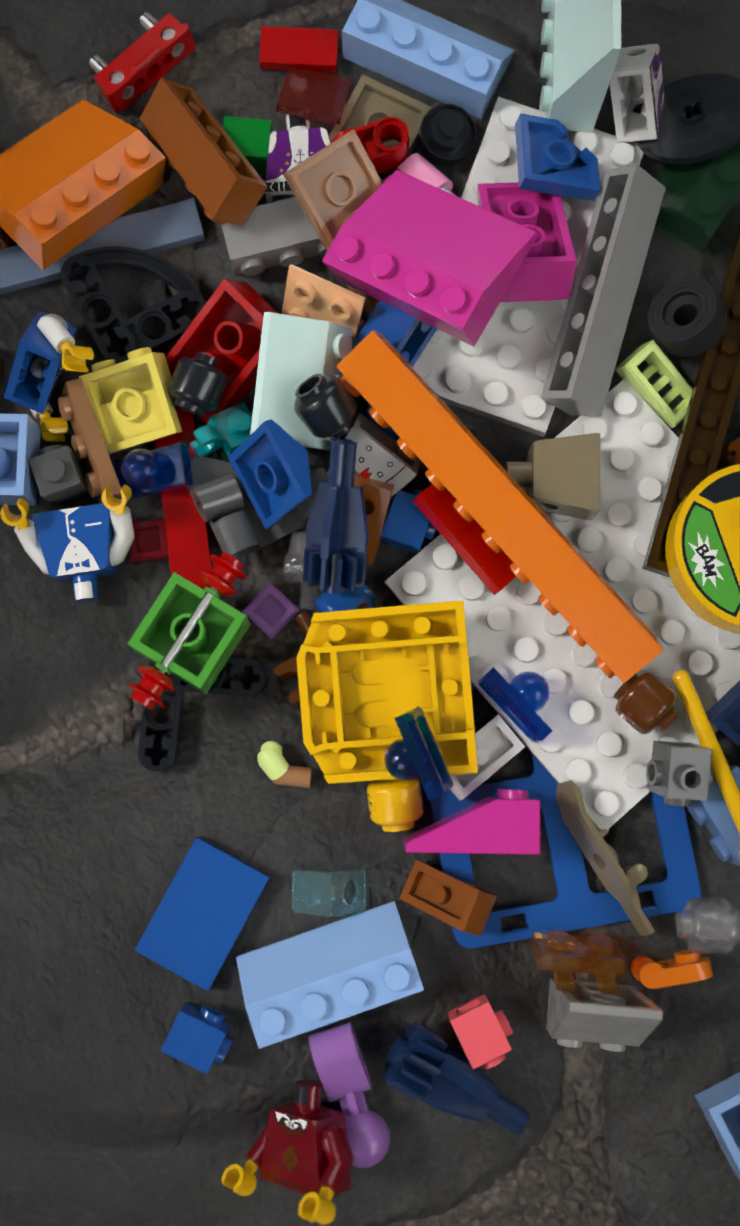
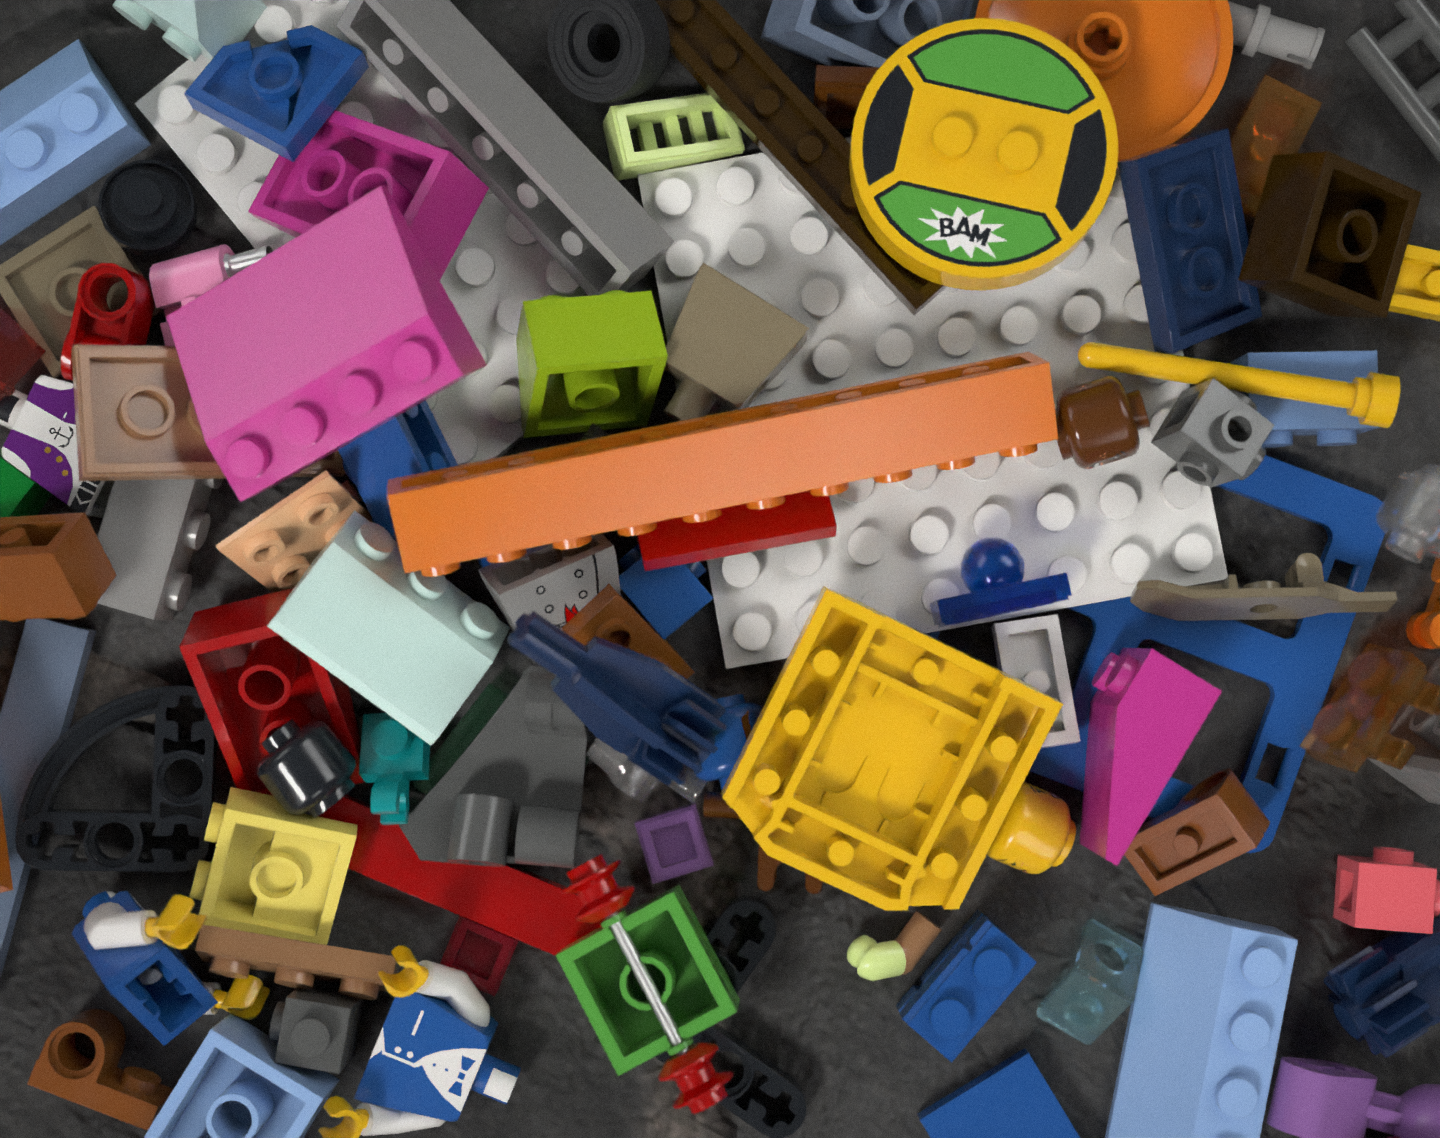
camera: 60 degrees left, 5 degrees up
(155, 470) = (389, 893): clear blue tile -> none
(272, 472) = (497, 740): blue slope -> none
(286, 817) = (965, 985): none -> blue brick
(325, 406) = (449, 618): black head -> none
(418, 755) = (997, 772): clear blue tile -> none
(507, 405) = (588, 362): none -> lime slope

